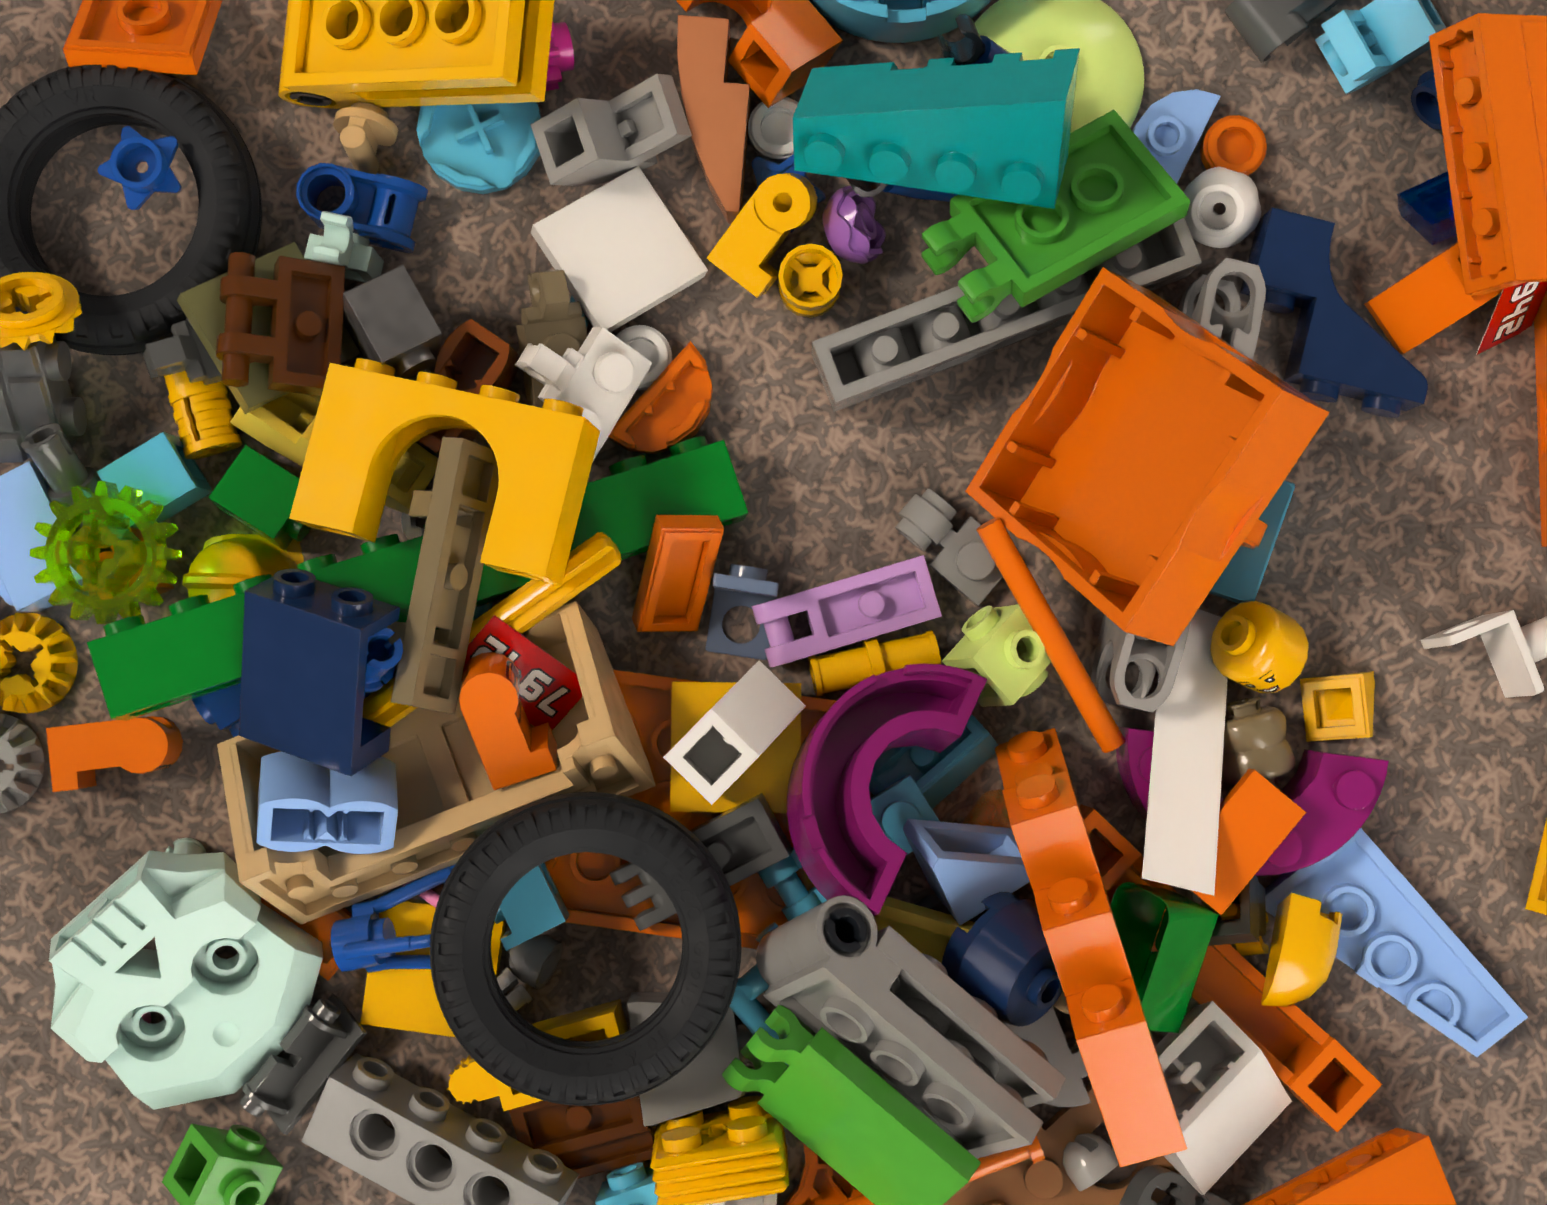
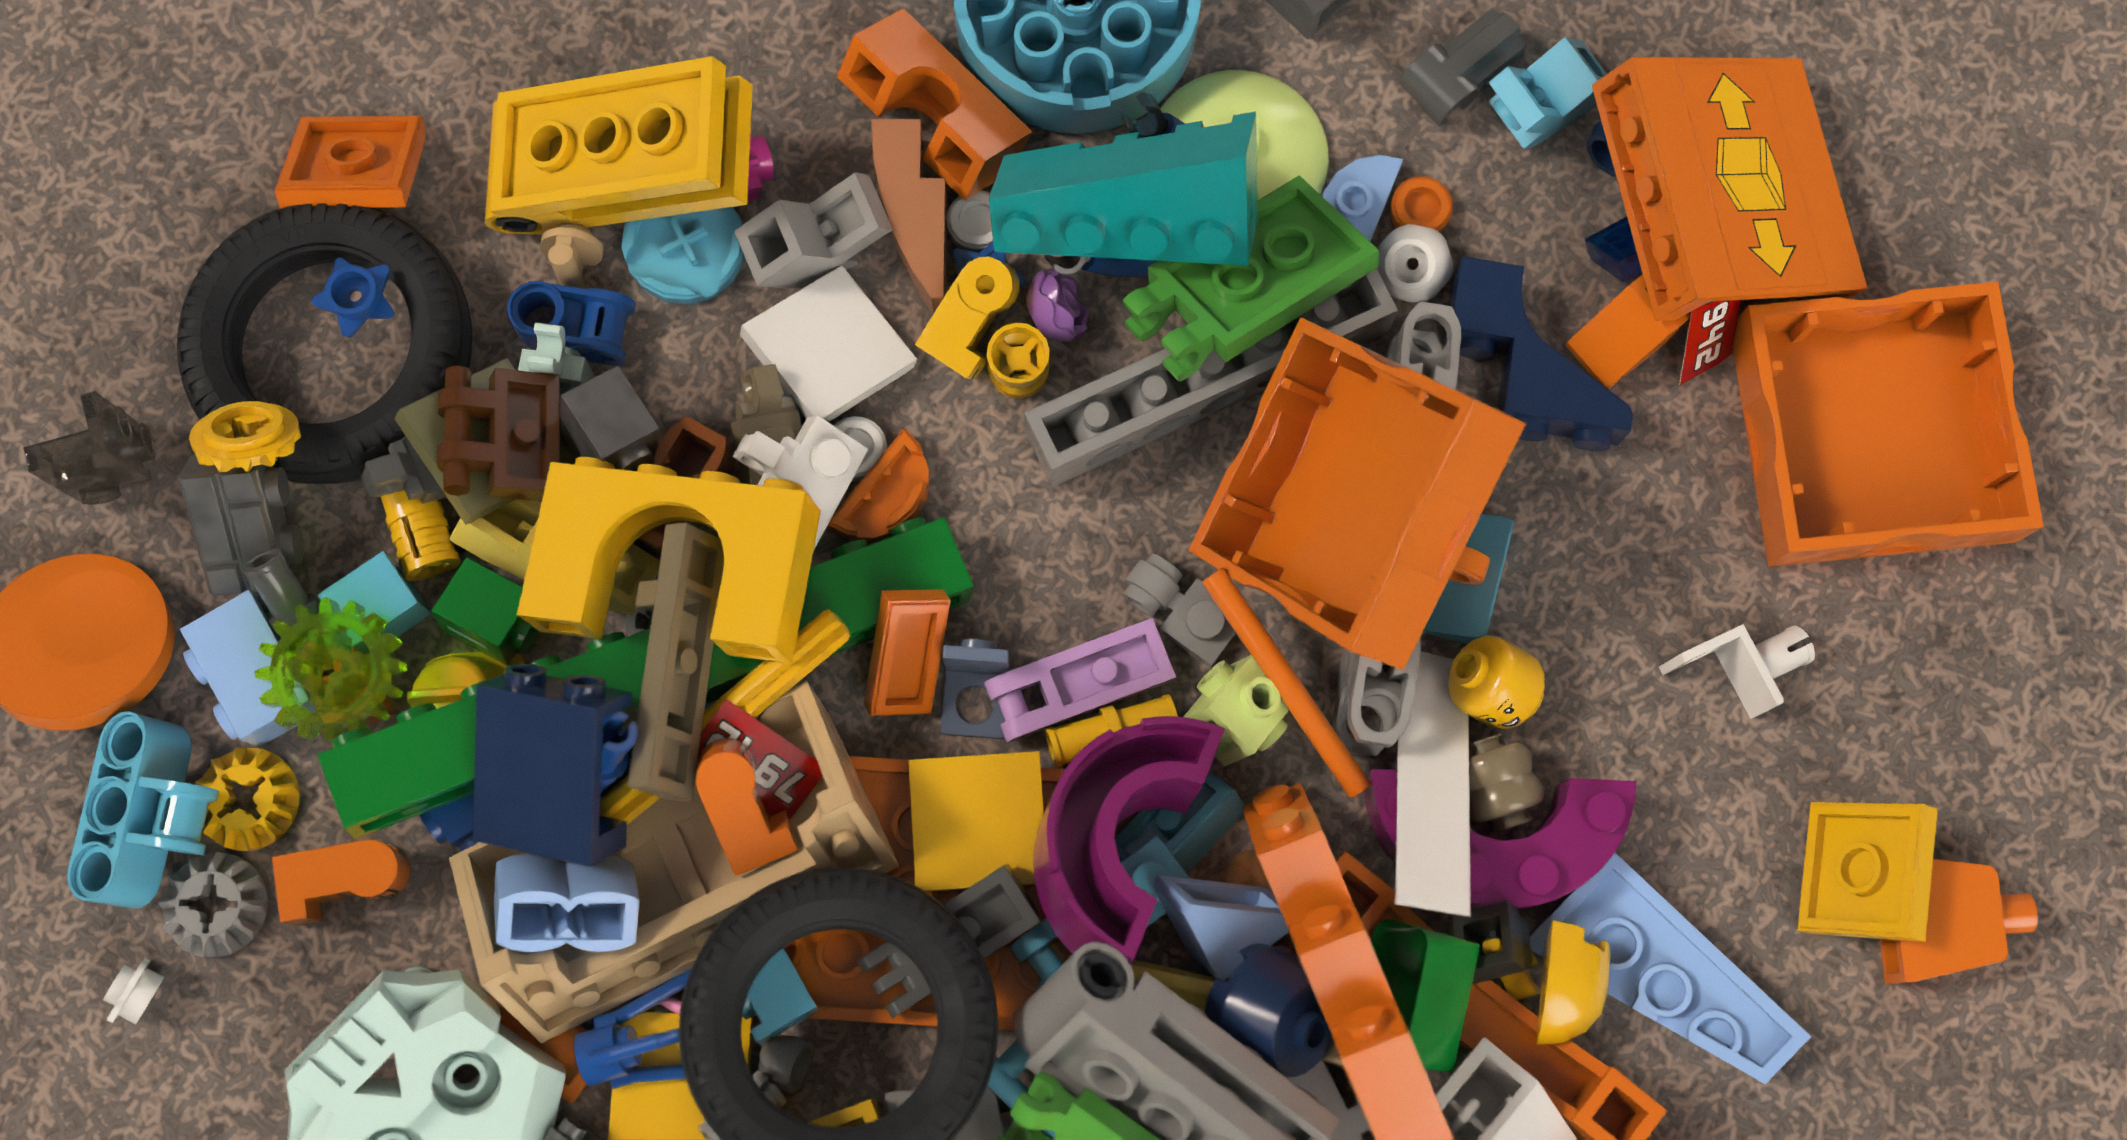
camera: 15 degrees left, 10 degrees down
(734, 732) = (974, 799): white slope -> none
(1251, 827) = (1501, 858): orange tile -> none
(1343, 703) = (1589, 737): yellow slope -> none

